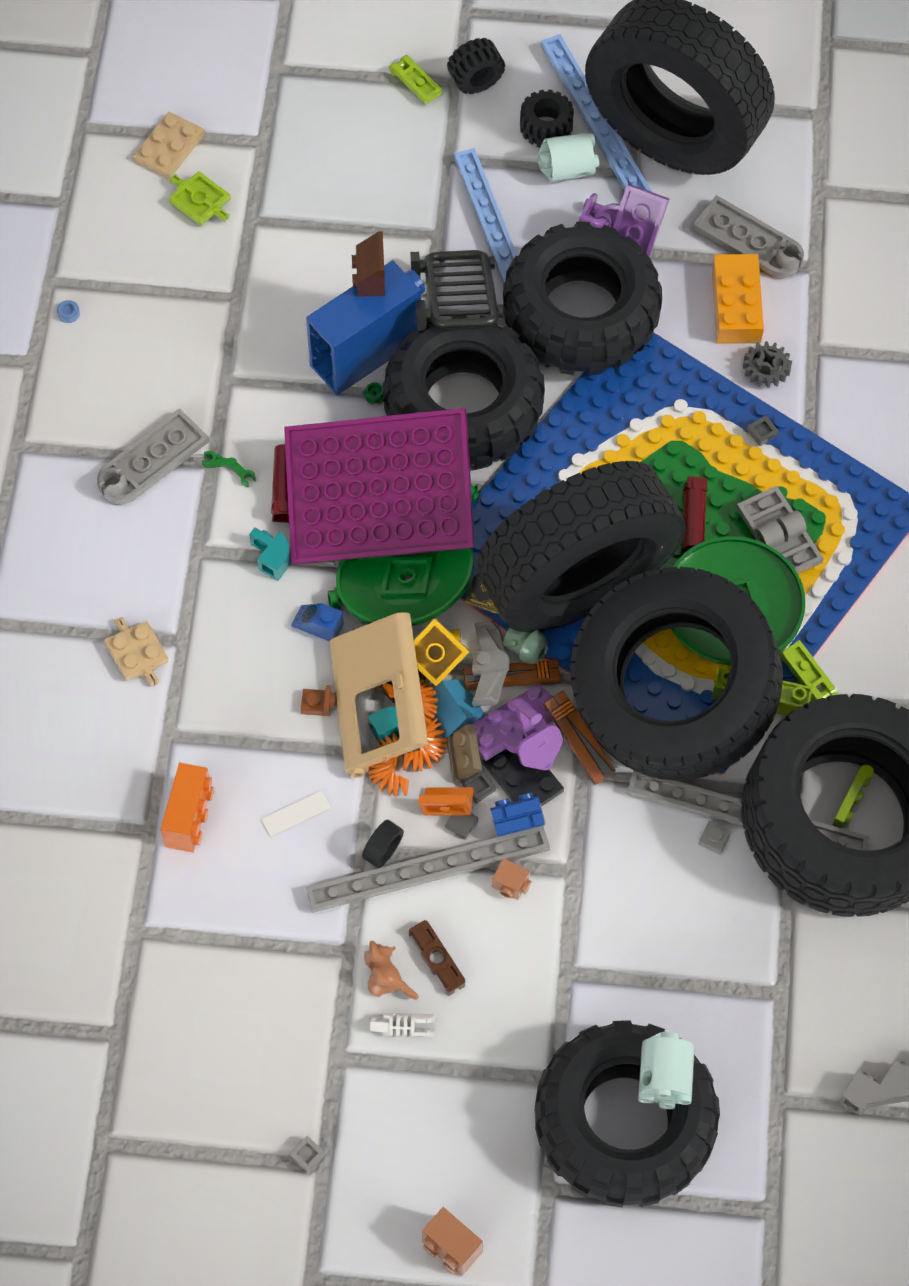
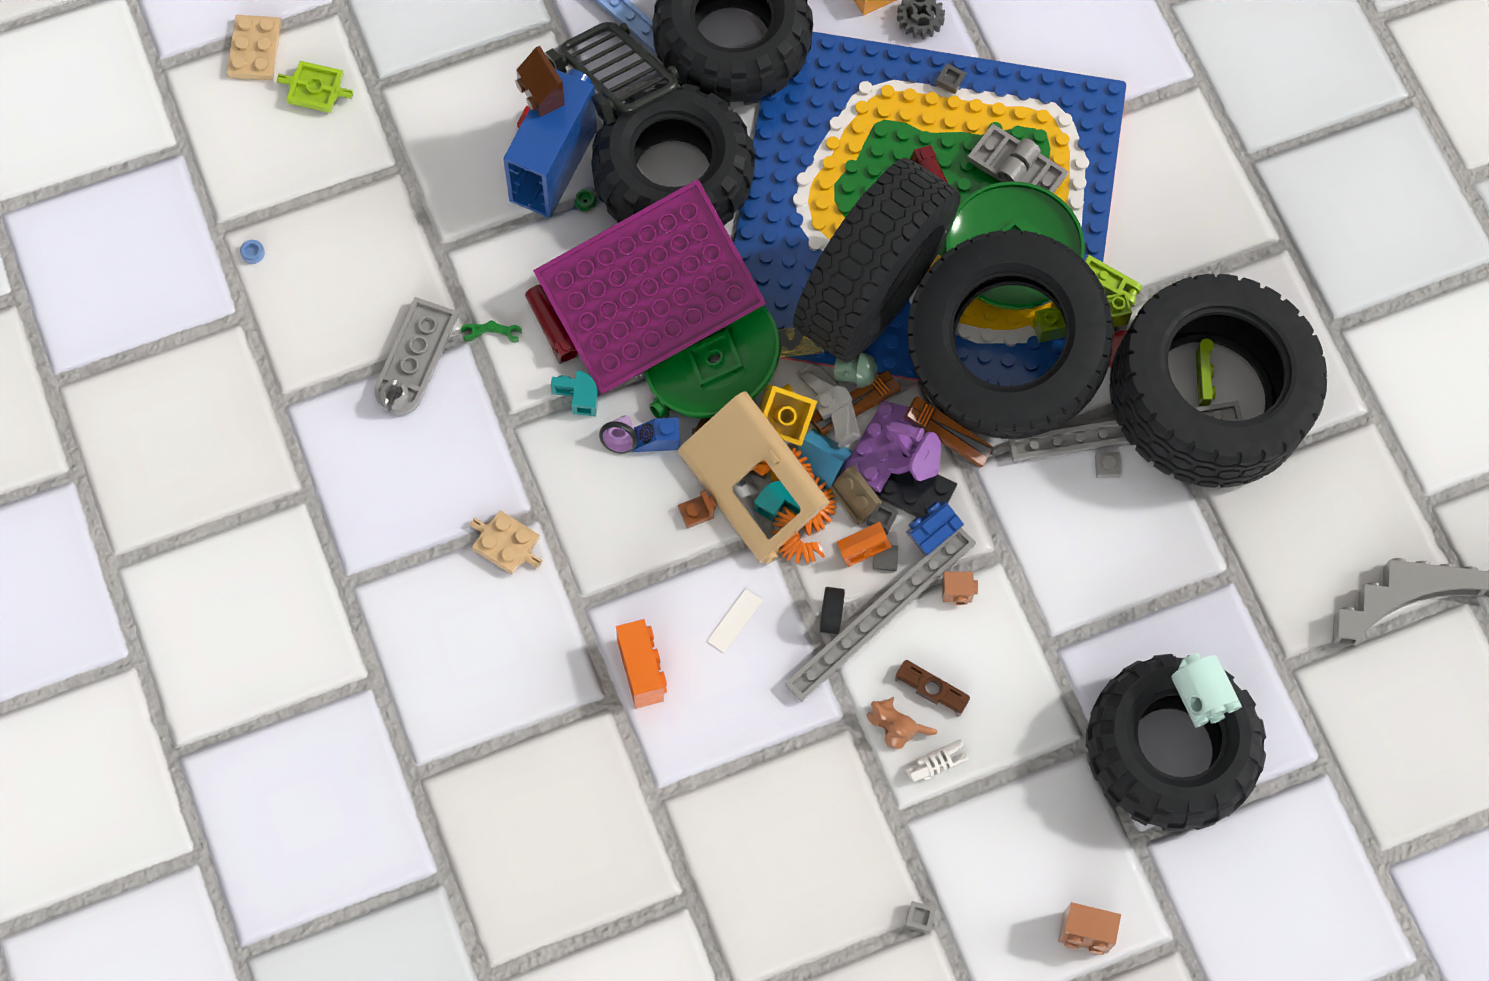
camera: 30 degrees left, 5 degrees up
(285, 604) = (619, 435): none -> lavender hat

